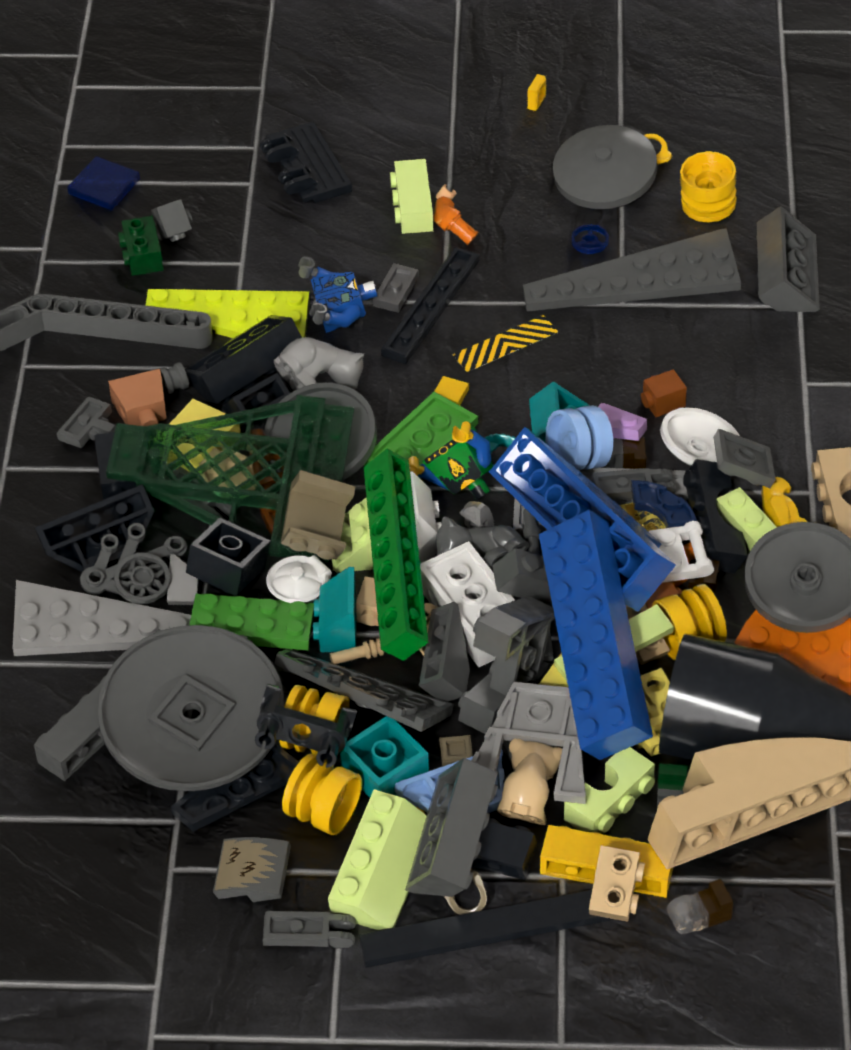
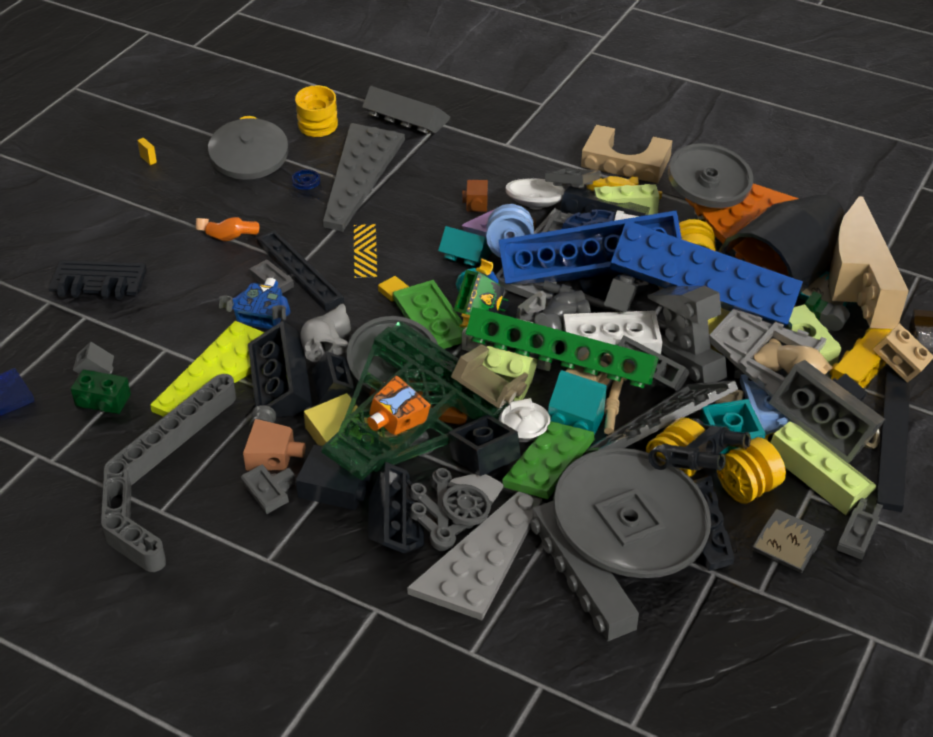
camera: 65 degrees left, 5 degrees down
(201, 454) = (397, 408): none -> orange torso
(412, 196) = (190, 238): yellowish green brick -> none

